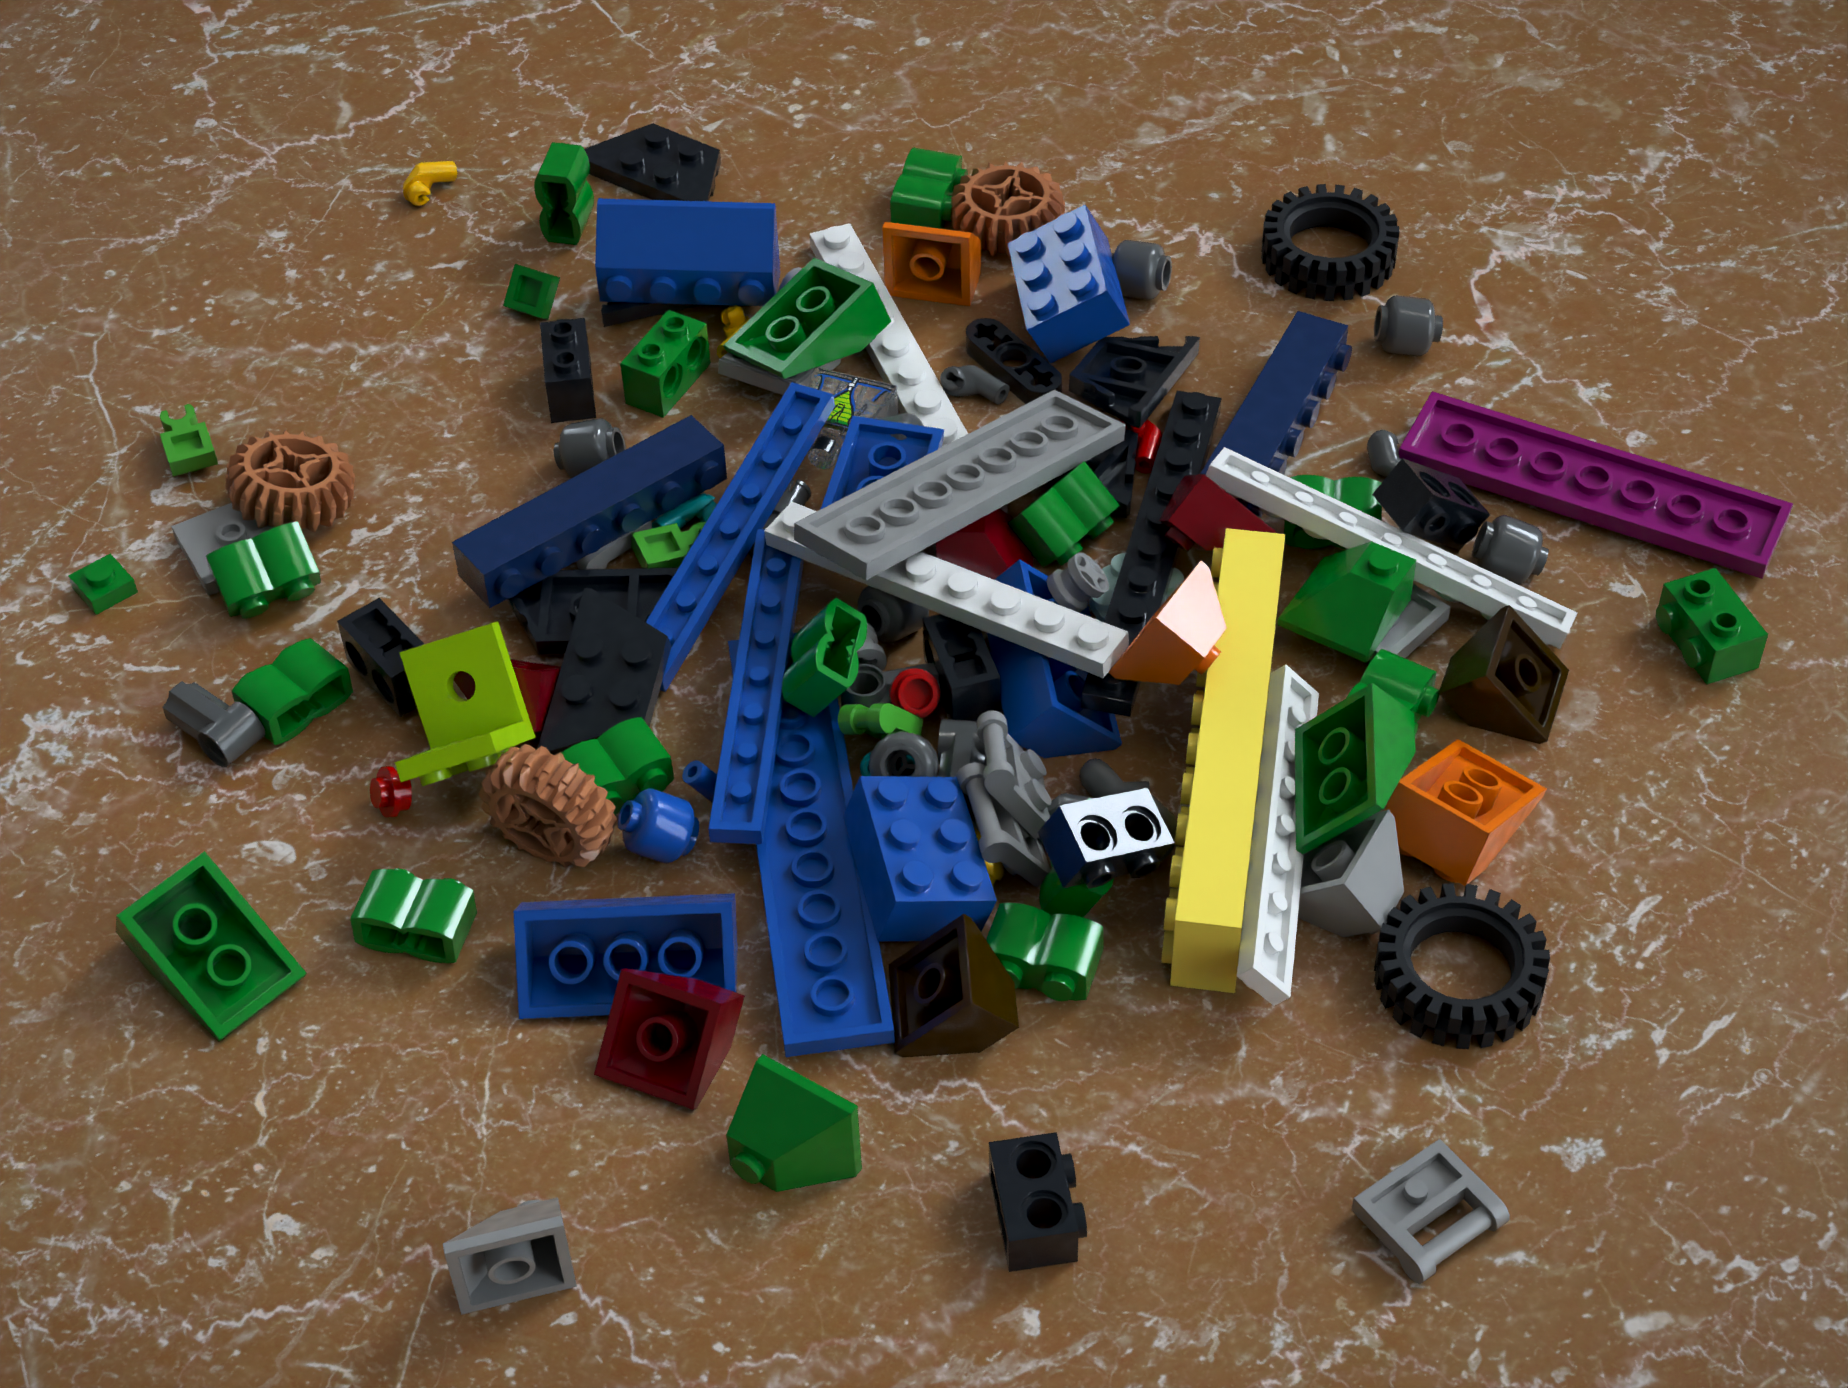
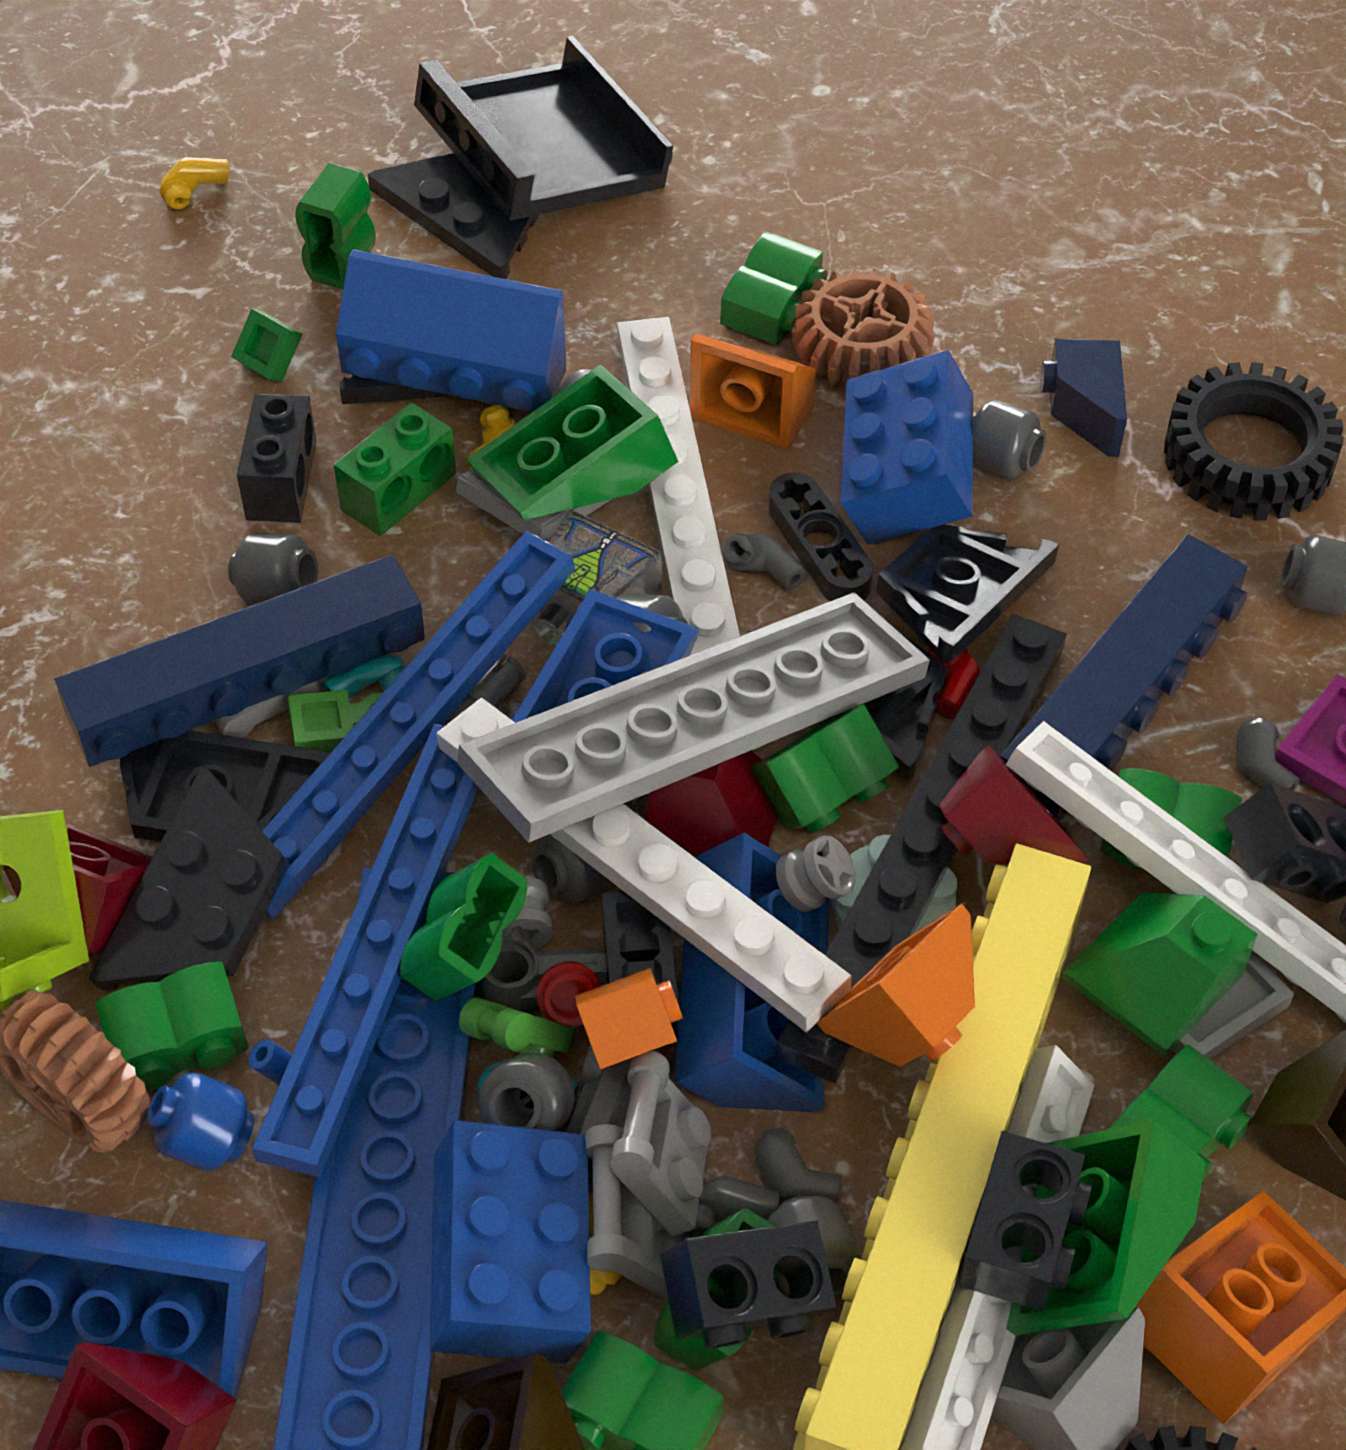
camera: 10 degrees right, 5 degrees up
(712, 101) = (546, 134): none -> black panel
(969, 690) = (628, 1017): none -> orange brick
(1194, 226) = (1088, 390): none -> dark blue slope
(1295, 766) = (1015, 1218): none -> black brick

